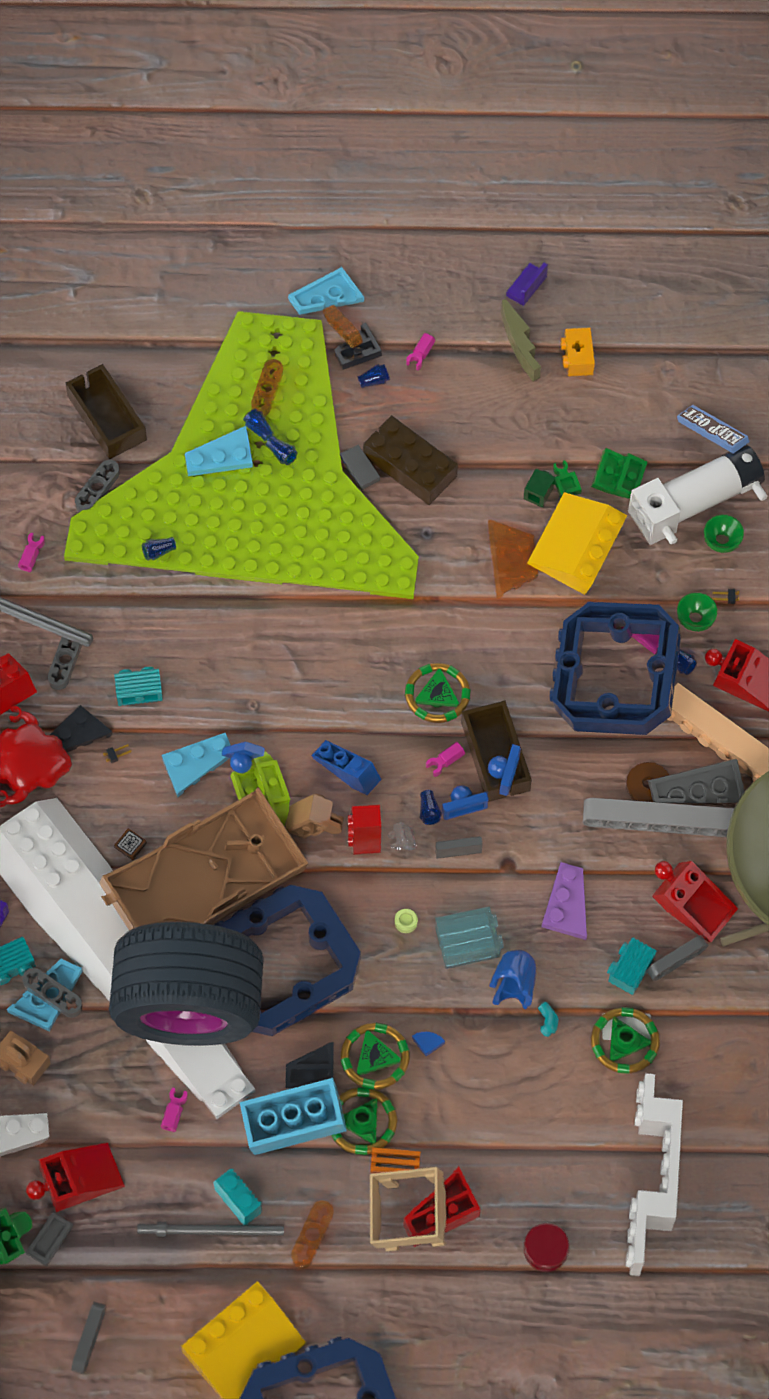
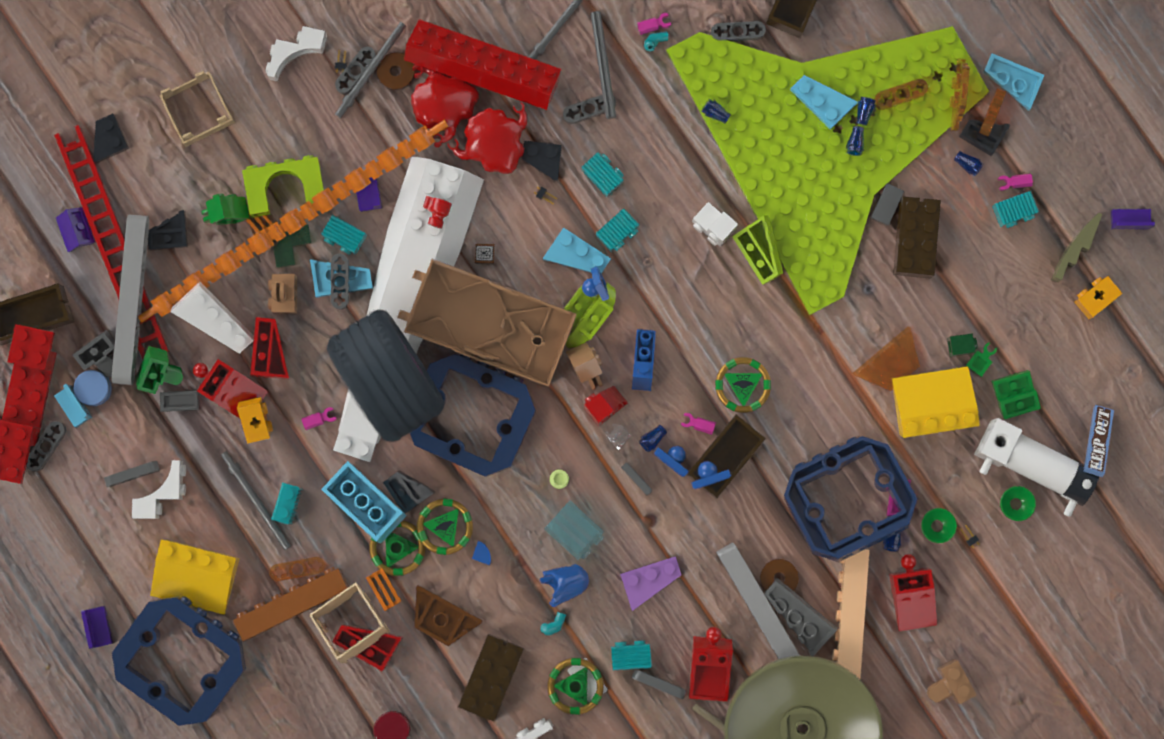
camera: 60 degrees right, 20 degrees up
(45, 562) = (653, 39): none -> teal arm
(56, 843) = (439, 210): none -> red piece
(68, 1112) = (267, 352): none -> red wedge
(114, 1169) = (252, 430): none -> light orange brick
(138, 1304) = (172, 489): none -> white arch
(202, 708) = (617, 230): none -> teal brick
(265, 620) = (714, 224): none -> white brick
(306, 336) = (959, 99): none -> clear orange wing
(319, 594) = (760, 249): none -> lime wedge
(345, 1263) = (291, 604): none -> dark orange brick
(446, 366) = (1015, 209): none -> teal brick
(465, 1123) = (441, 618): none -> reddish brown wing
(560, 1112) = (491, 677): none -> dark brown piece

